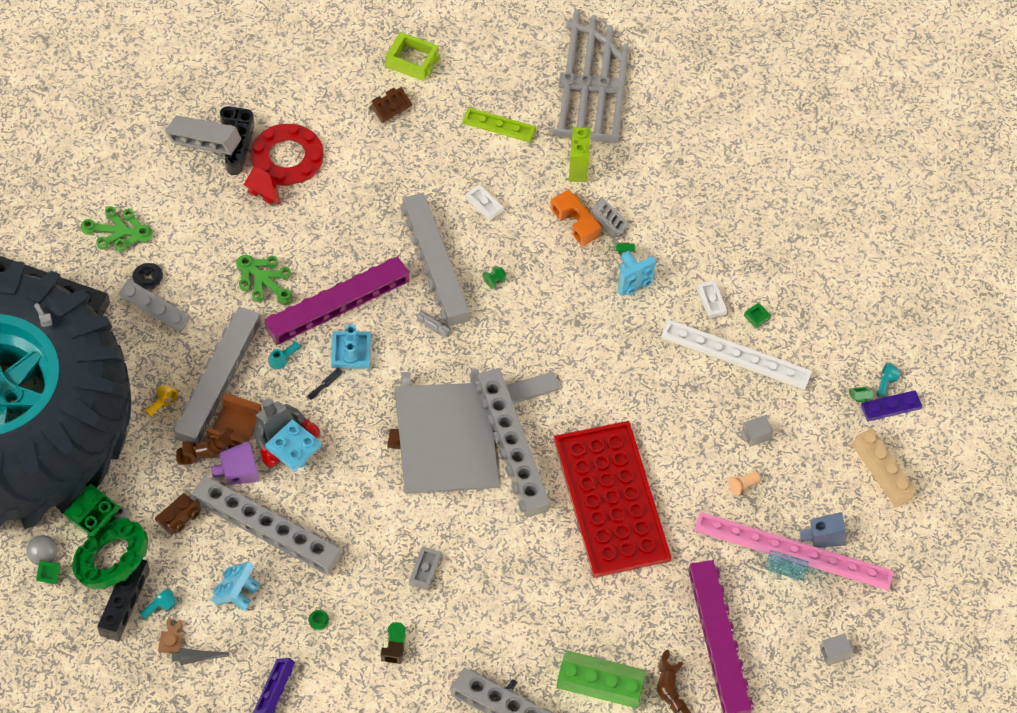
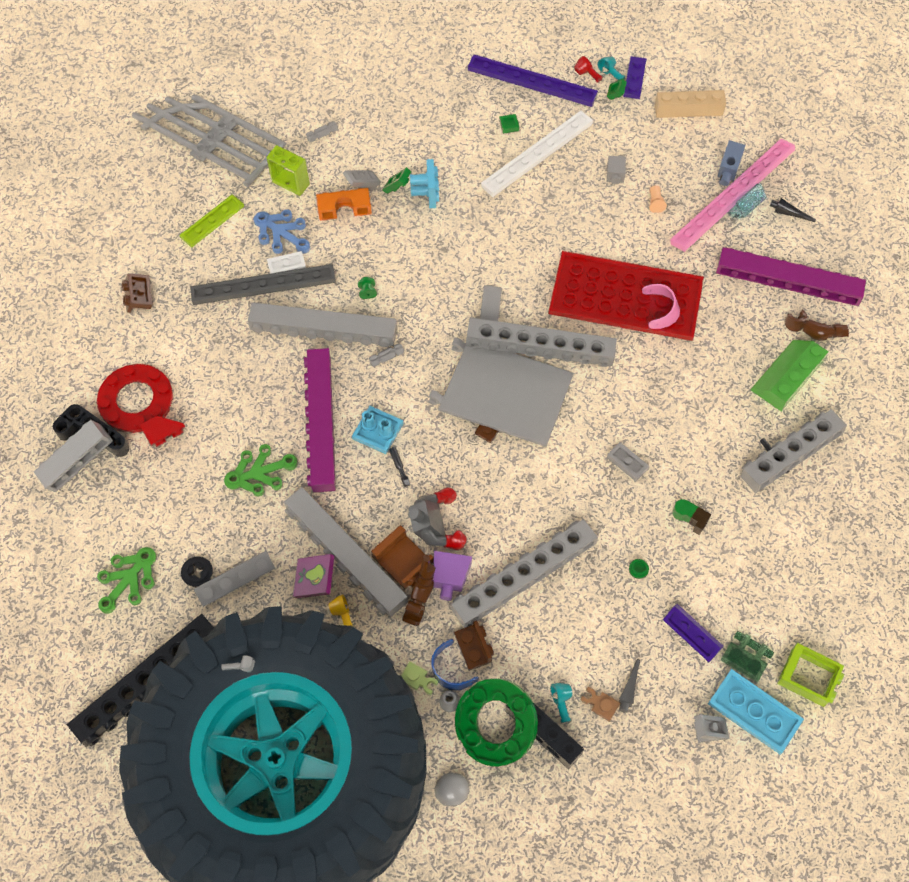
camera: 60 degrees left, 5 degrees up
(48, 571) = (481, 791): green plate -> none
(91, 511) = (442, 721): green slope -> none
(129, 481) = (416, 677): none -> yellowish green plate
(142, 488) = (451, 686): none -> blue piece
(182, 361) = (313, 576): none -> magenta tile
(234, 579) = (576, 624): medium azure plate -> none
(281, 362) = (355, 498): teal bar -> none
(293, 445) = (460, 513): medium azure plate -> none
(393, 61) = (105, 263): lime window -> none
(453, 195) = (262, 284): none -> dark grey plate
(518, 180) = (281, 230): none -> medium blue plant
(613, 541) = (673, 315): none -> bright pink piece
(650, 164) = (322, 131): none -> light grey axle
(711, 299) = (477, 146): white plate -> none
(806, 605) = (785, 208): none -> black piece
(825, 315) = (532, 80): none -> dark purple plate
(836, 649) = (832, 204): light grey brick -> none
(871, 351) = (584, 66): none -> red bar

